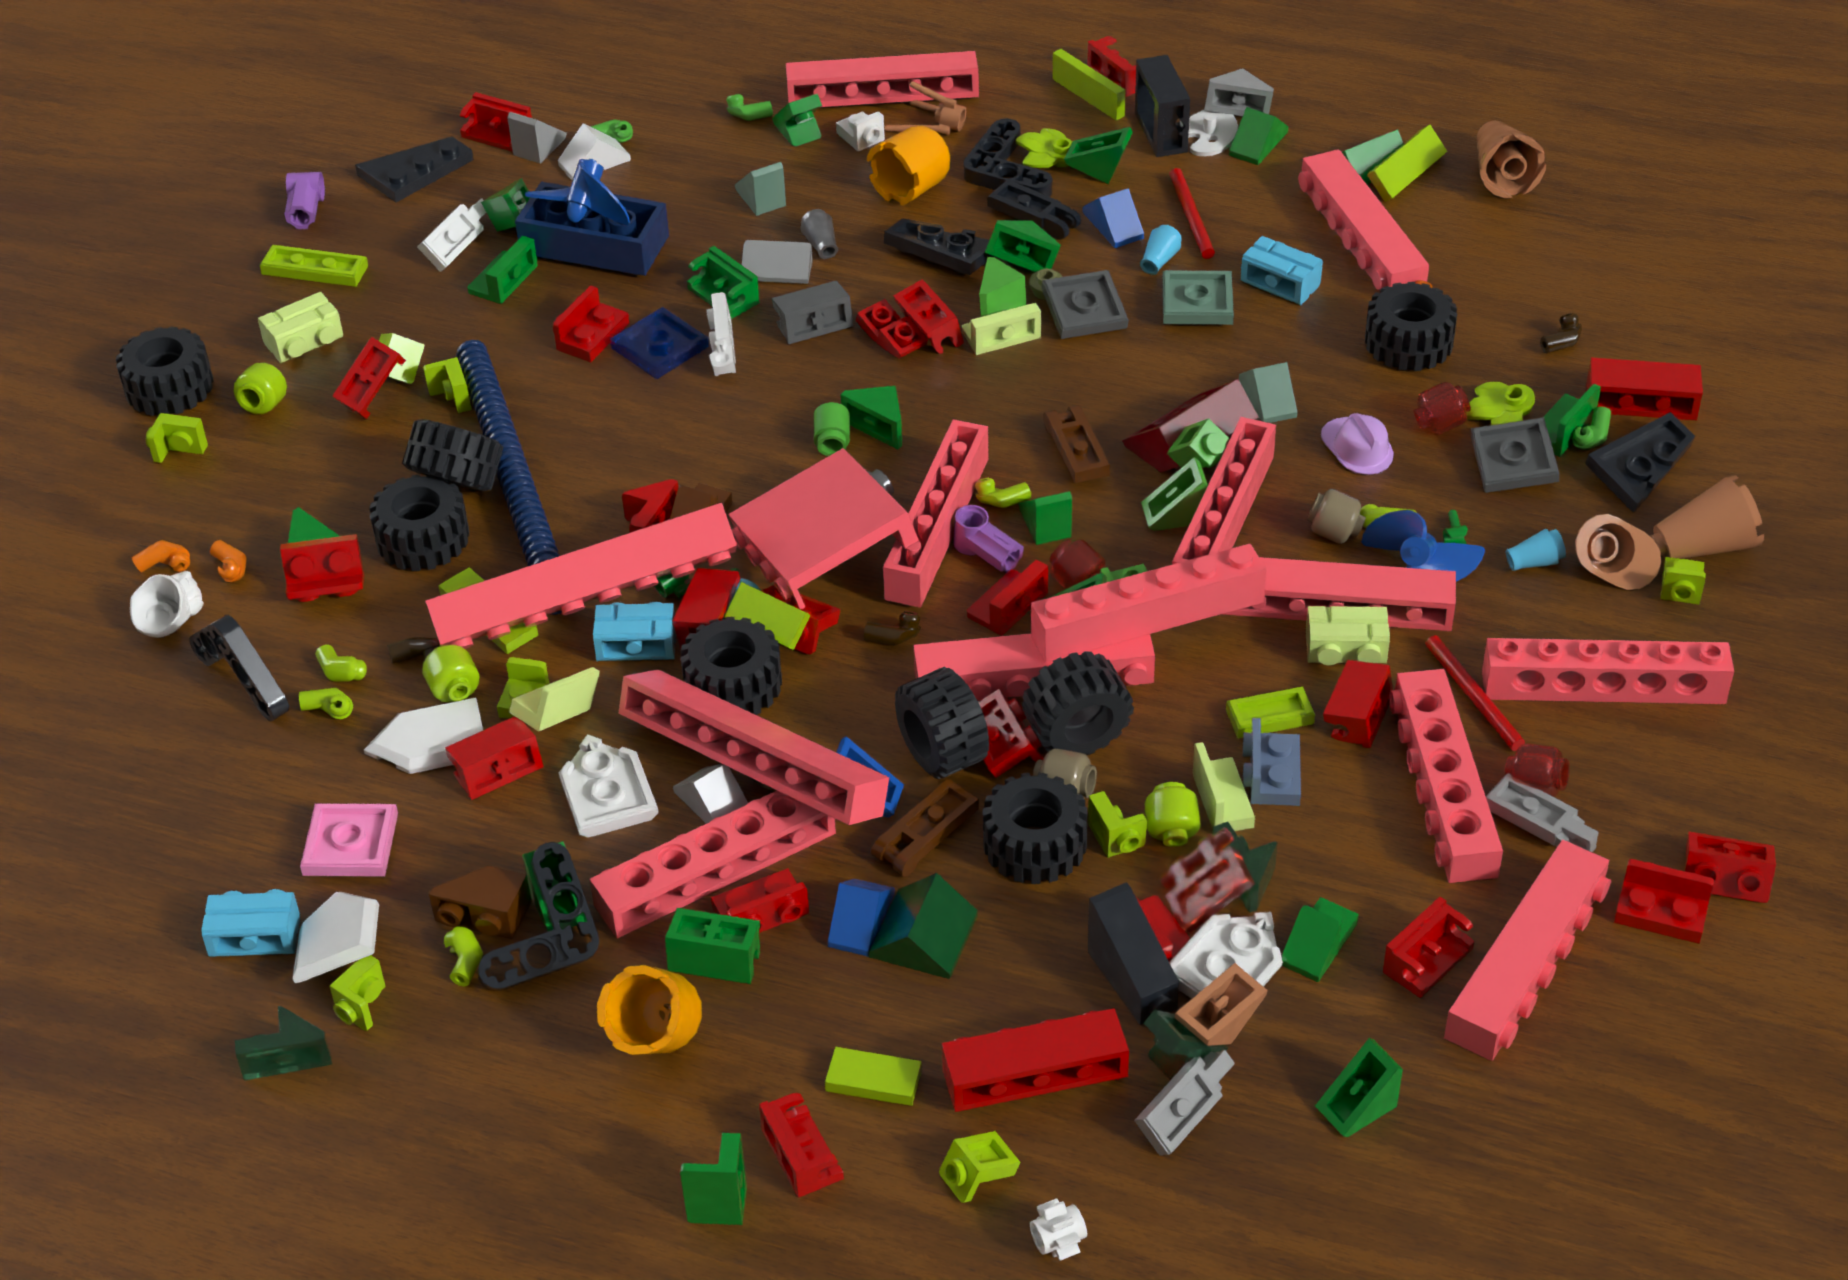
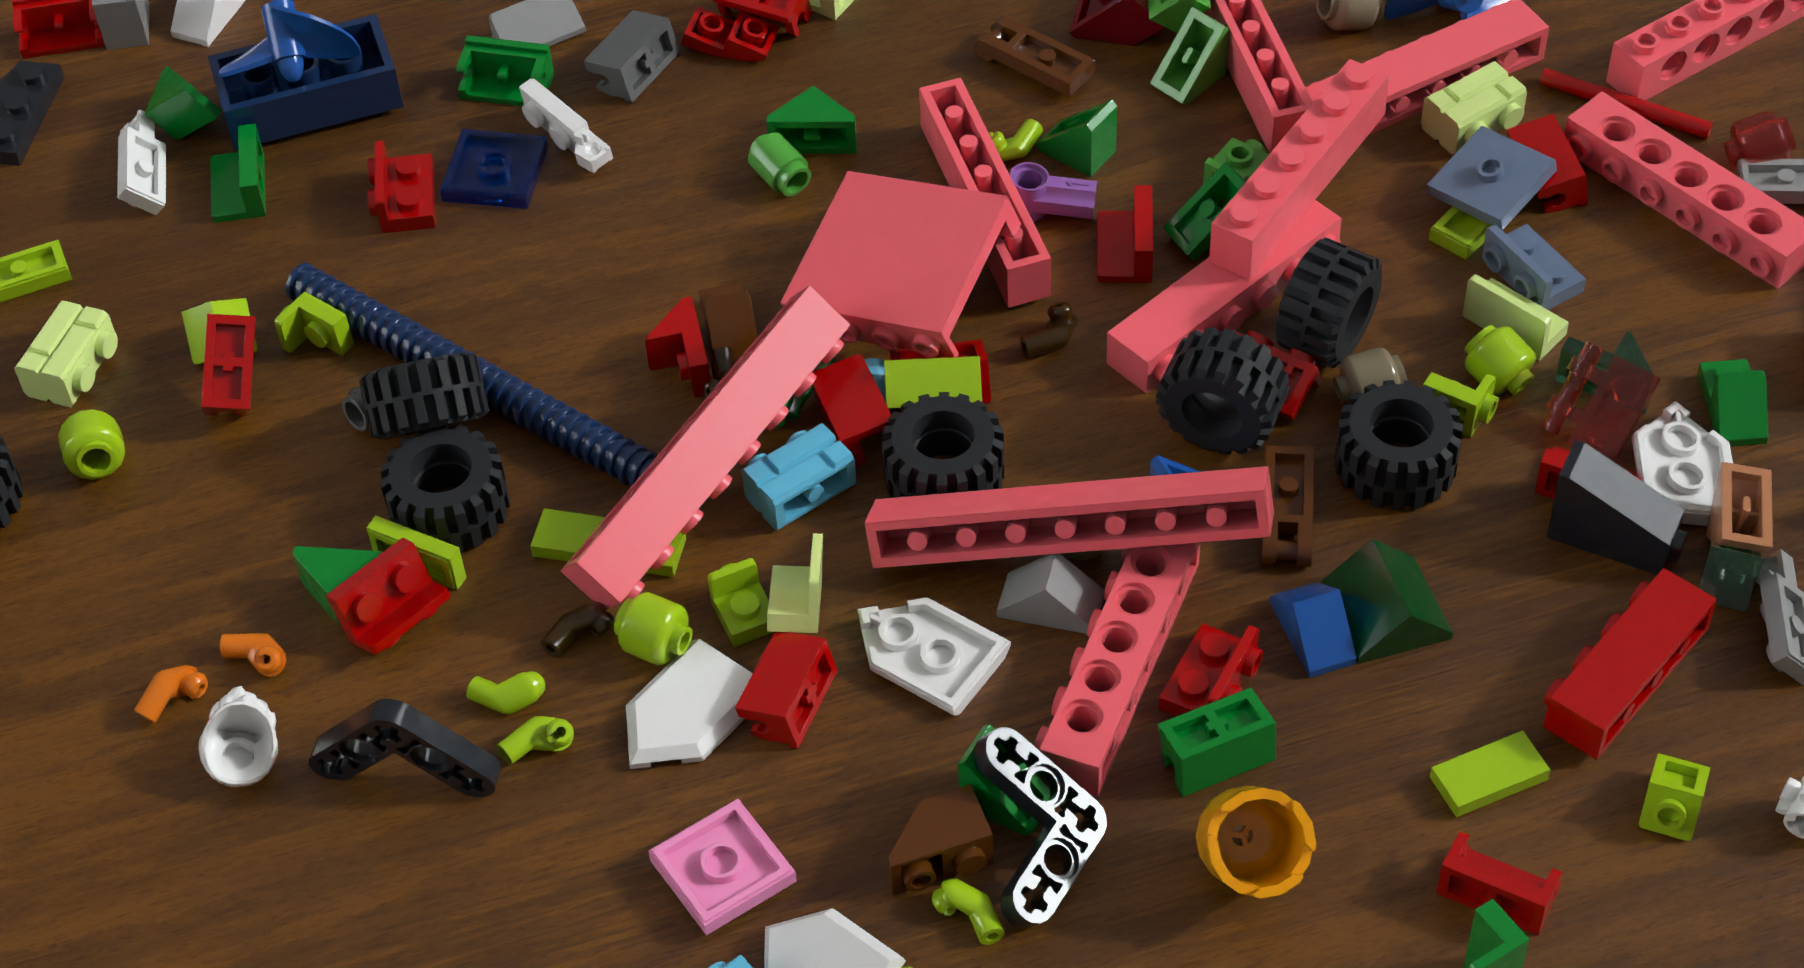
camera: 35 degrees left, 5 degrees up
(175, 434) = (42, 547): lime bracket -> none
(371, 555) = (440, 558): none -> lime tile
(1075, 562) = (1170, 173): clear red head -> none
(1298, 686) = (1492, 177): none -> sand blue plate

